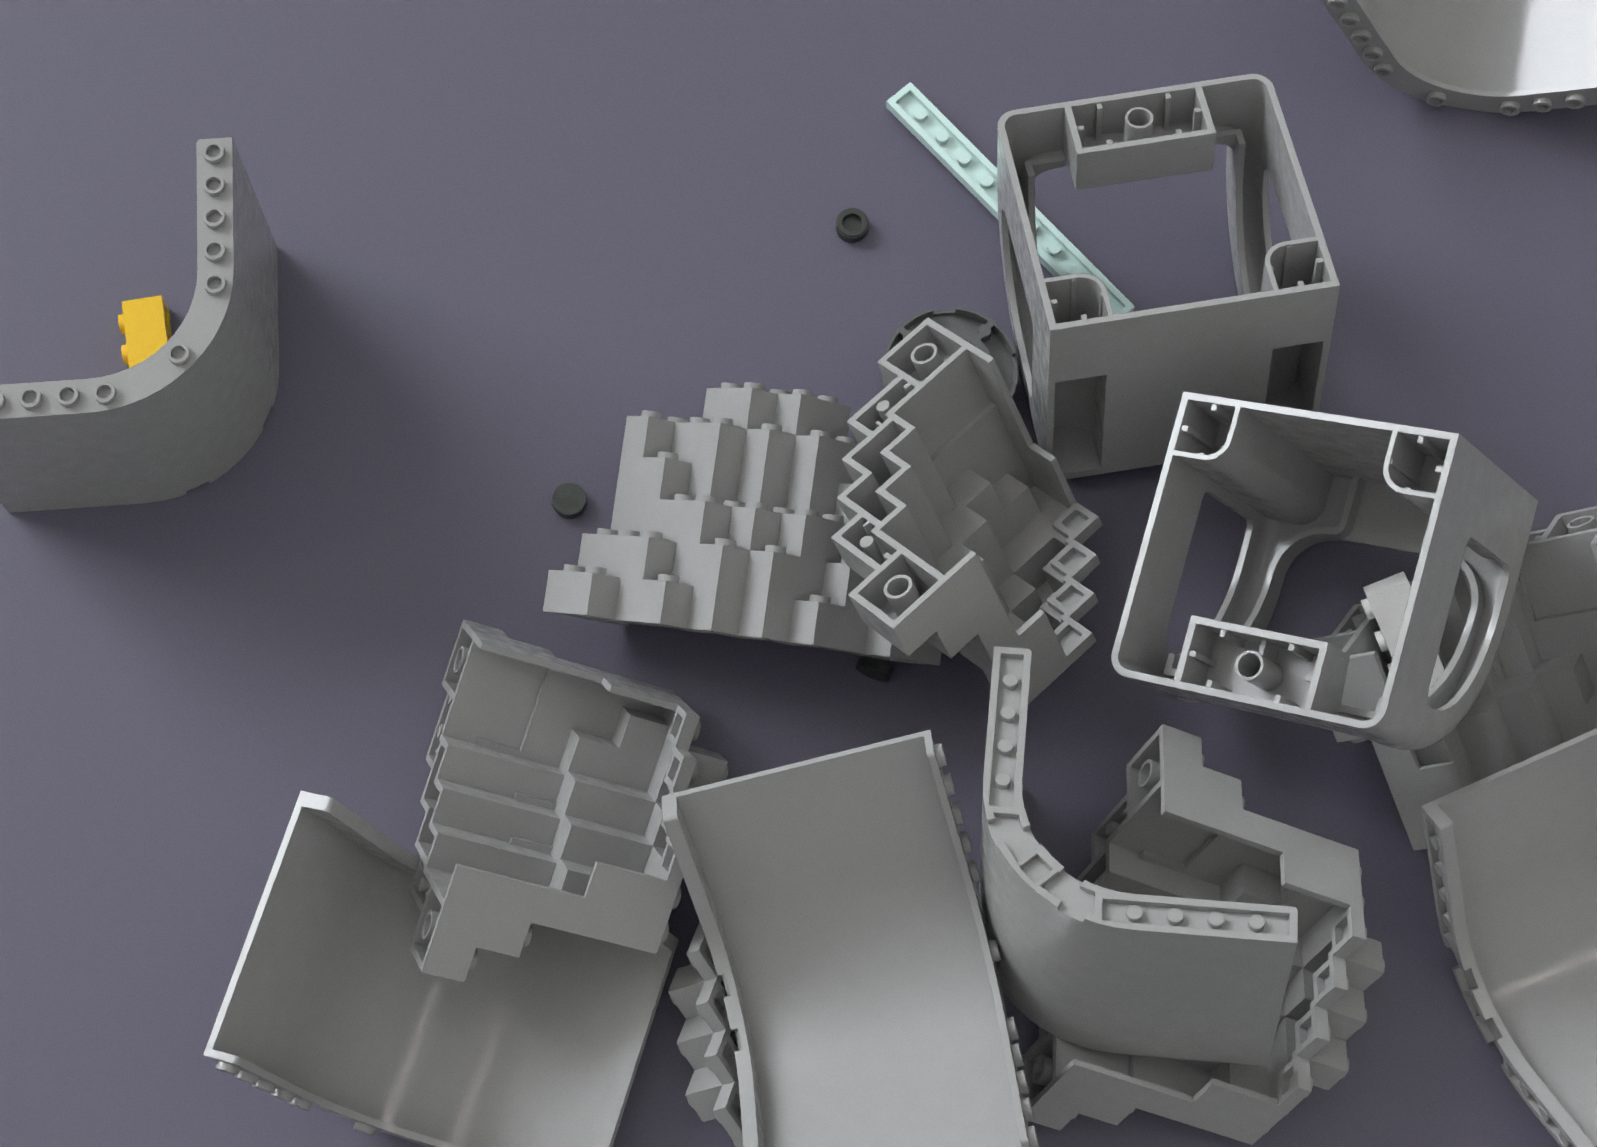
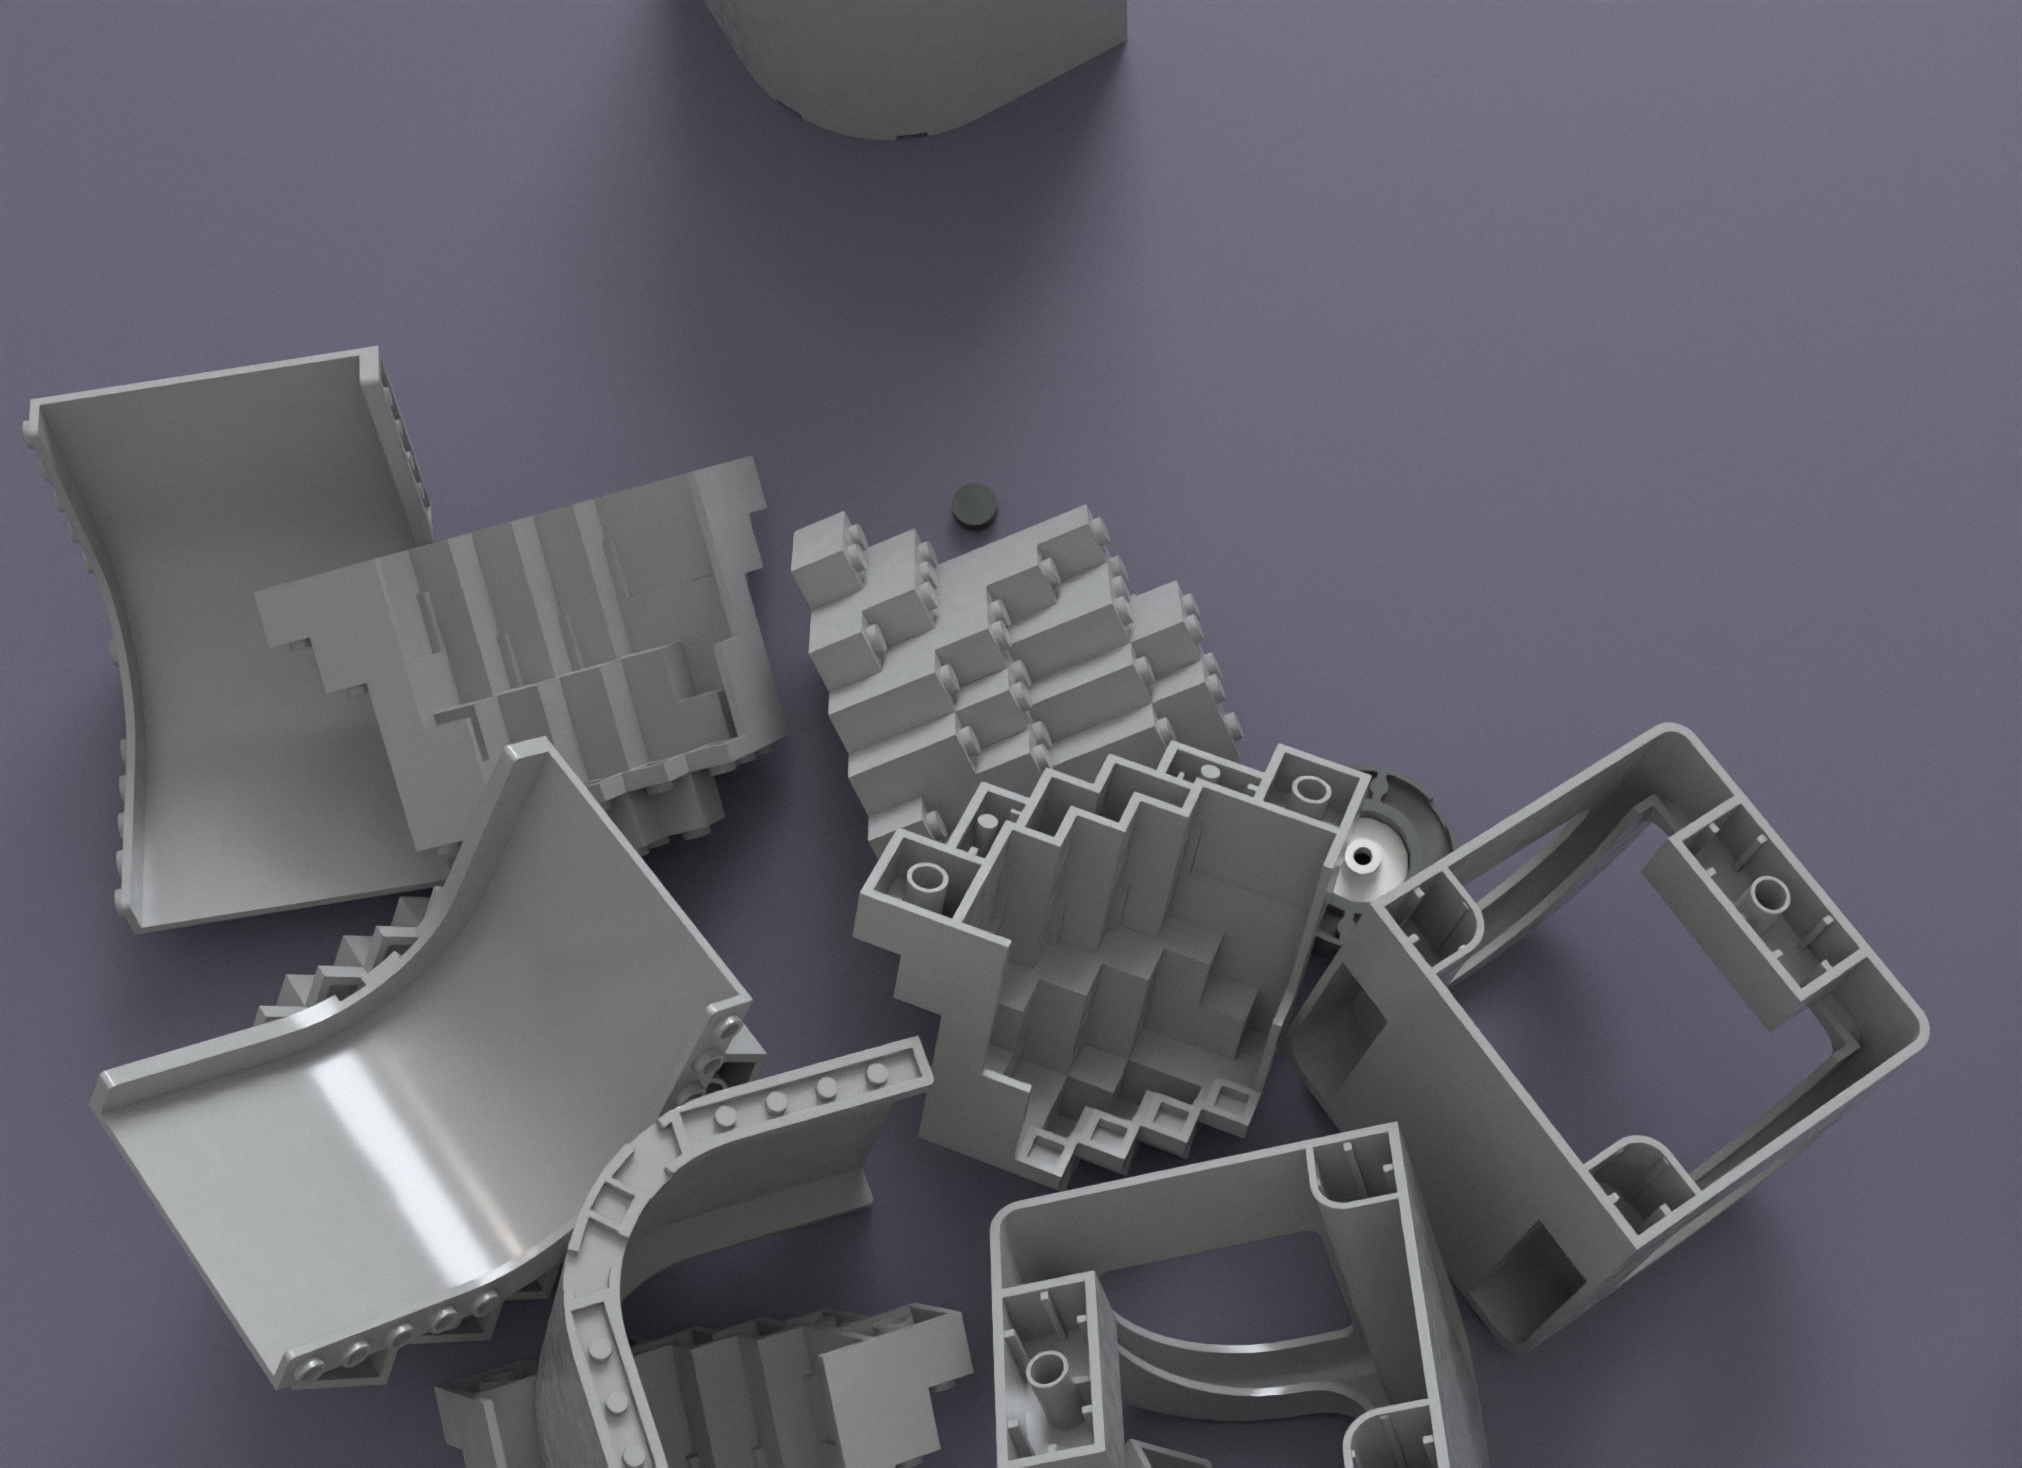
camera: 70 degrees right, 0 degrees up
(852, 225) = (1510, 657): pearl dark grey tile -> none
(980, 178) = (1622, 884): light aqua plate -> none

